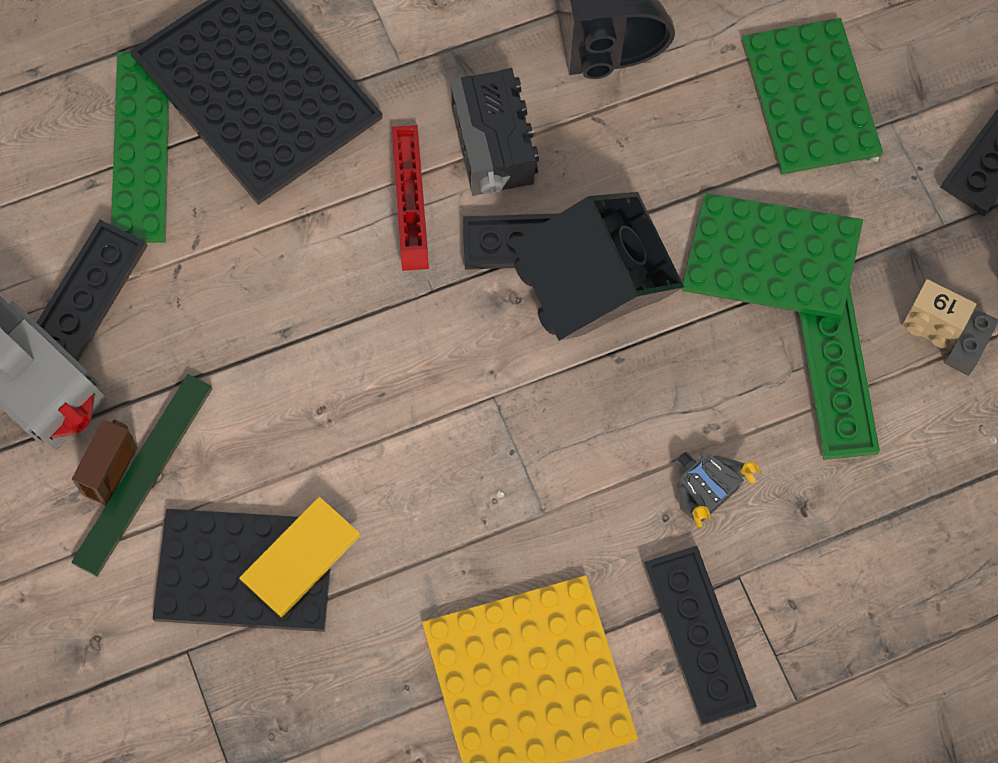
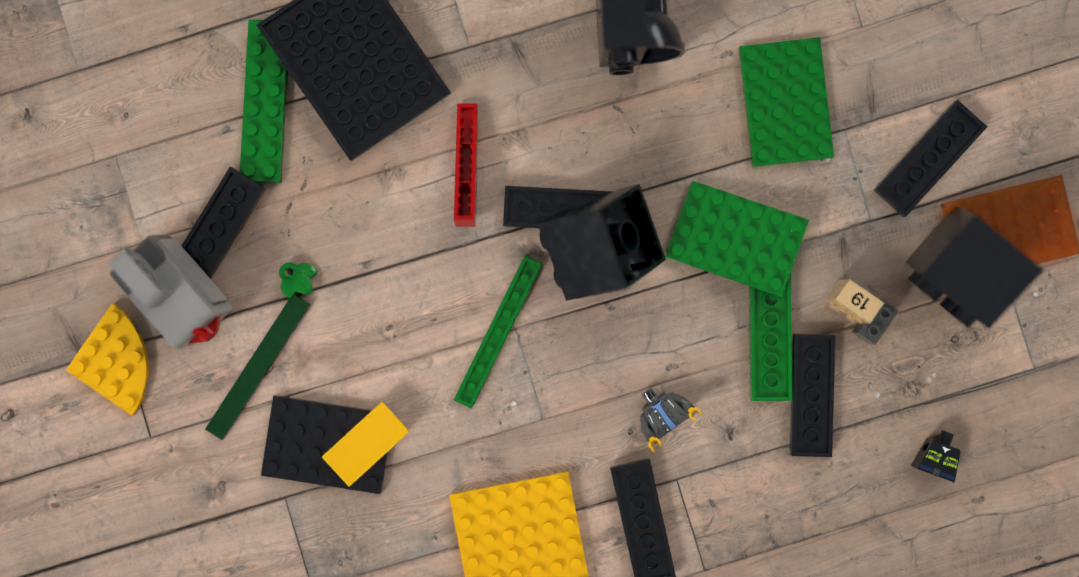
camera: 10 degrees right, 20 degrees up
(105, 461) = (228, 361): reddish brown window -> none
(194, 357) = (299, 280): none -> green plate
(469, 403) = (498, 332): none -> green tile
(493, 131) = (534, 119): black piece -> none
(906, 445) = (812, 395): none -> black plate

